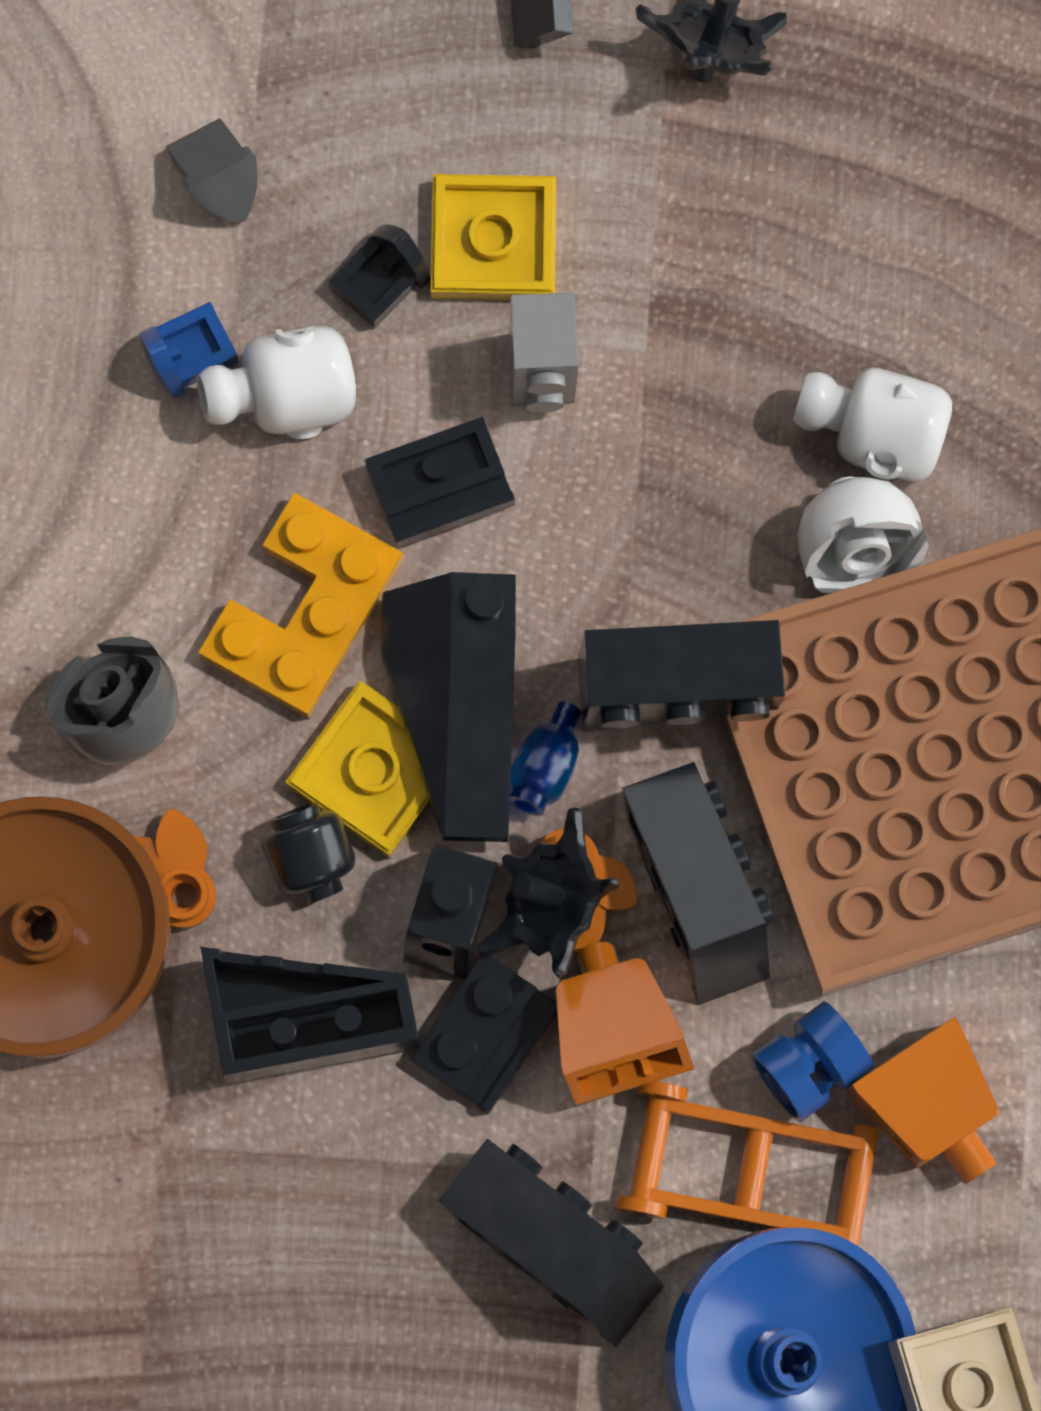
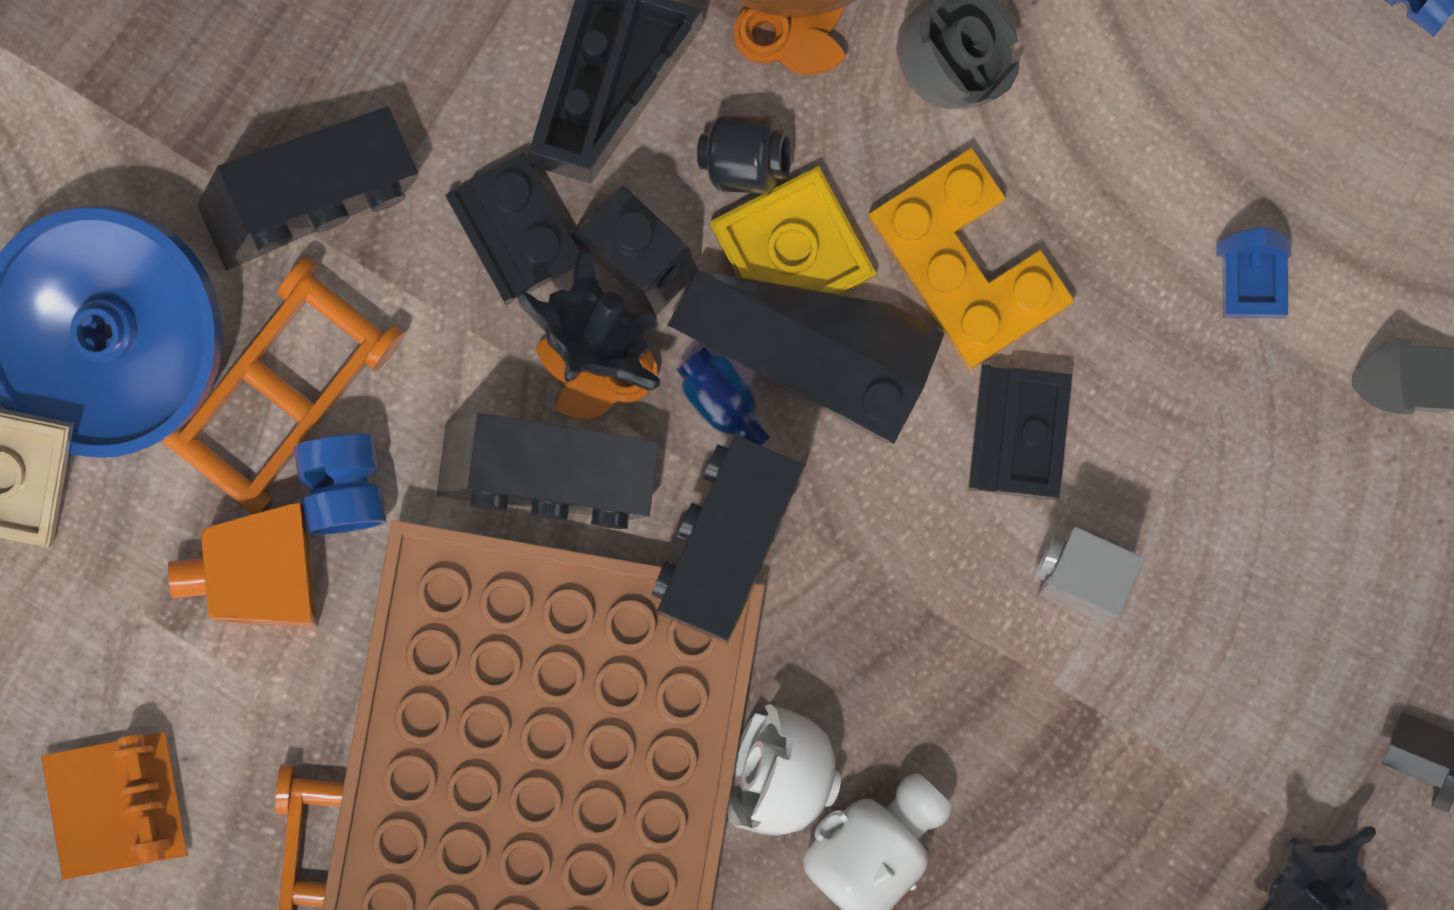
camera: 120 degrees right, 5 degrees up
(287, 381) = (1175, 342): white piece -> none
(381, 274) = (1239, 478): black tile -> none
(492, 236) = (1226, 599): yellow tile -> none
(616, 1027) = (457, 330): orange torso -> none

